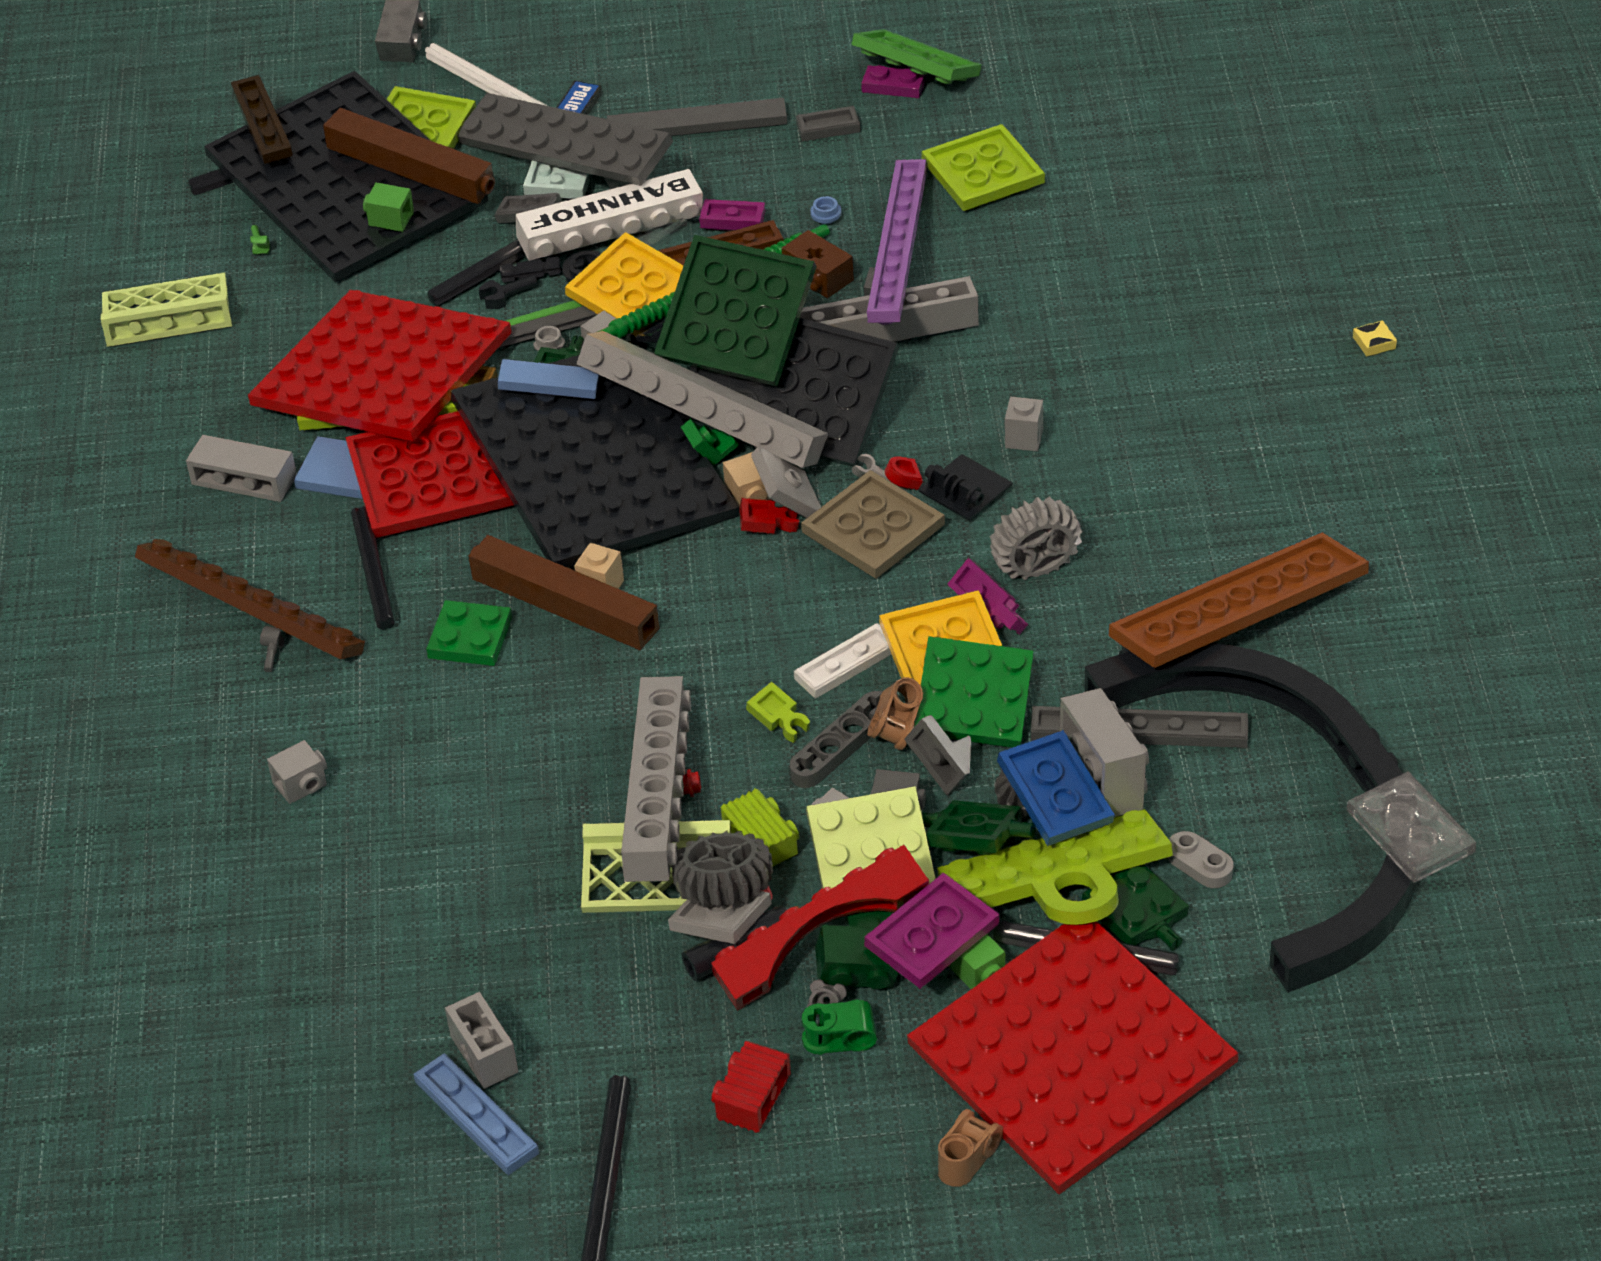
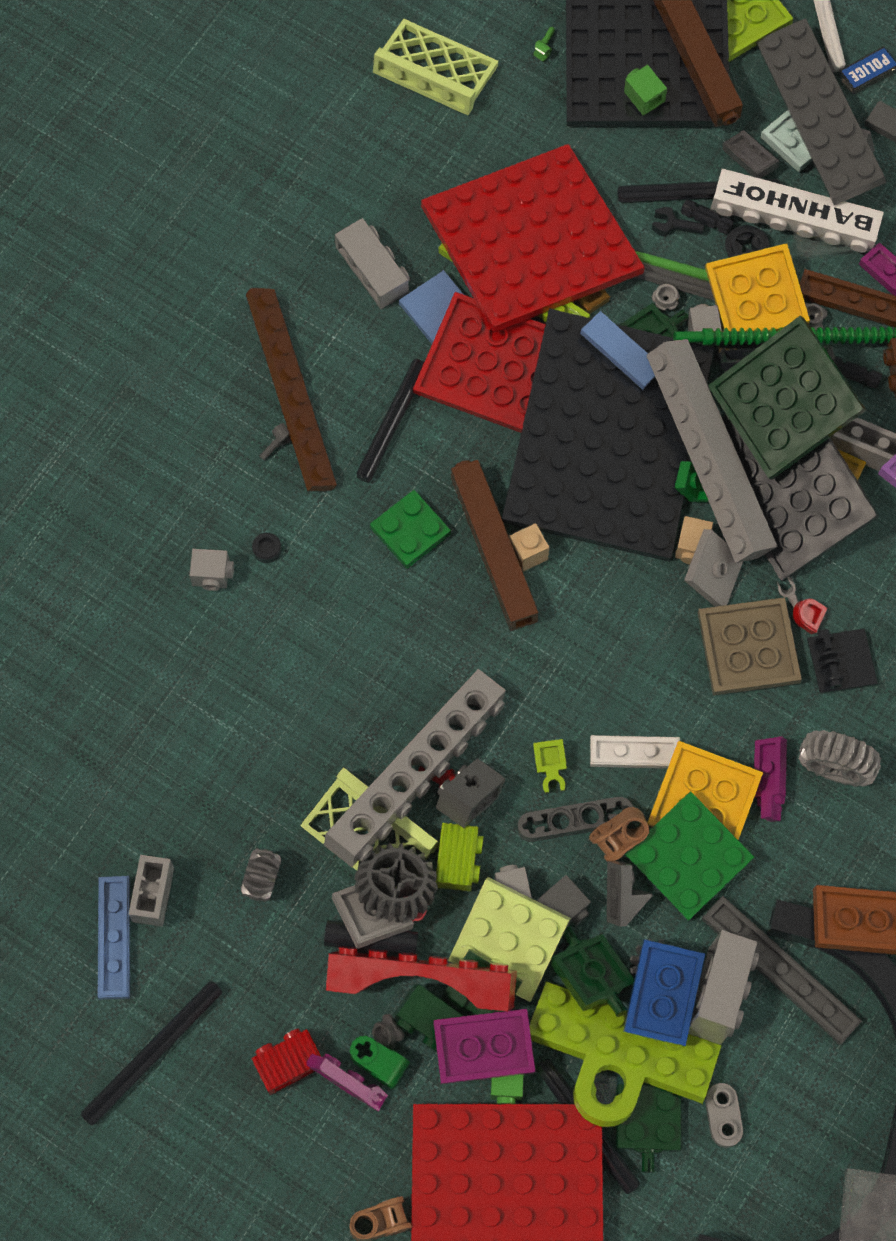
camera: 35 degrees right, 25 degrees up
(339, 729) = (266, 547): none -> black tile
(581, 957) = (261, 874): none -> flat silver gear
(724, 768) = (469, 792): none -> dark grey brick
(763, 516) = (673, 580): red plate -> none
(824, 1053) = (349, 1082): none -> magenta hinge

